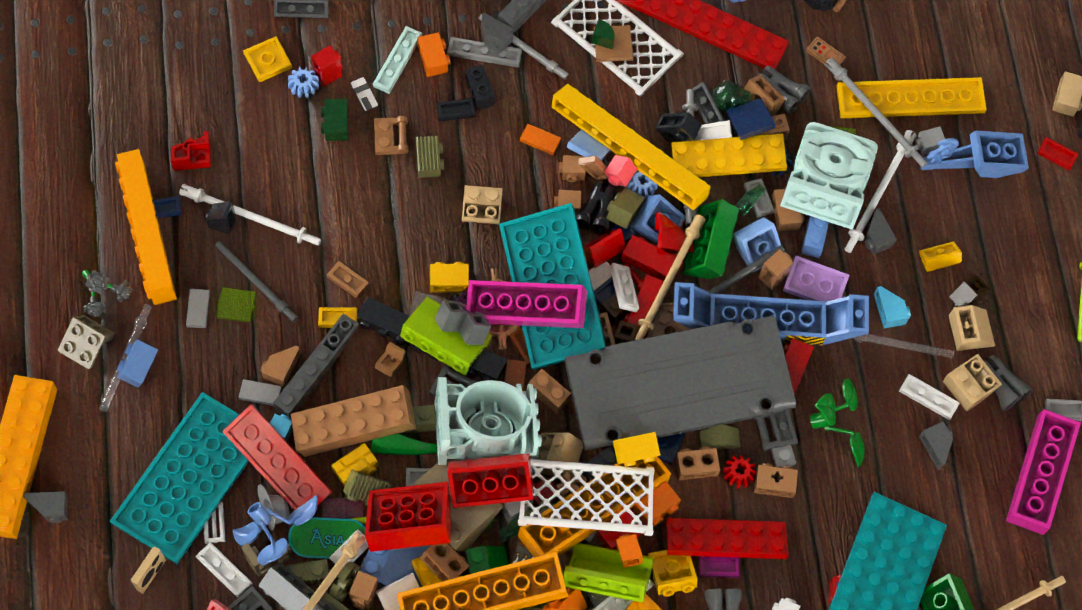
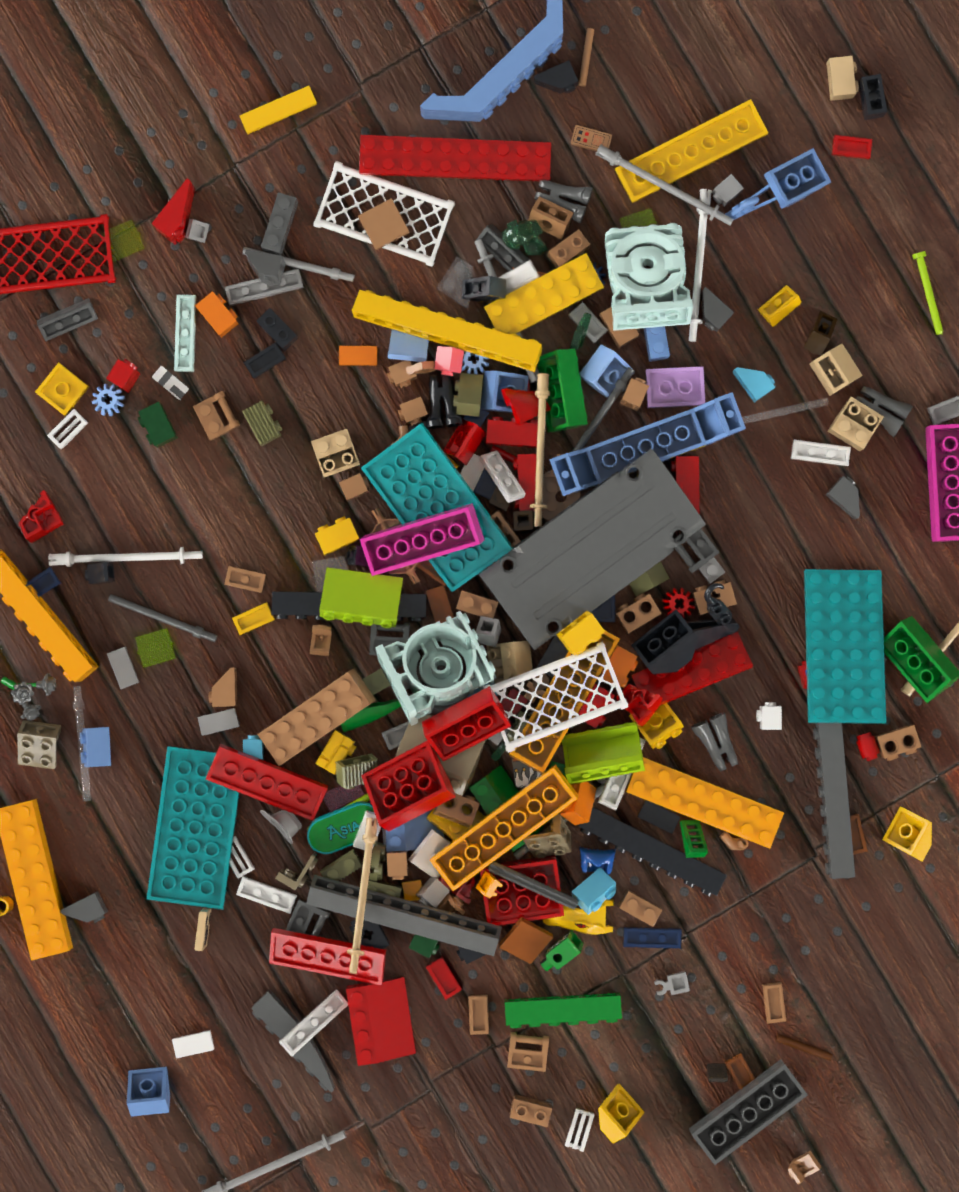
camera: 20 degrees left, 20 degrees up
(255, 95) = (79, 418): none -> white tile
(261, 518) = (276, 846): medium blue plant -> none
(315, 367) = (257, 677): dark grey slope -> none
(455, 318) = (365, 581): dark grey brick -> none
(485, 242) = (354, 486): none -> medium nougat brick
(550, 415) = (488, 631): none -> light grey brick
(603, 35) = (372, 223): dark green brick -> none
(629, 550) = (612, 727): orange brick -> none
(651, 115) = (452, 281): none -> clear wing
(665, 542) = (641, 703): none -> red slope
(719, 567) = (695, 699): magenta tile -> none
(724, 498) = (674, 640): none -> black slope
(751, 119) = (550, 251): dark blue tile -> none
(827, 417) = (738, 523): green plant -> none

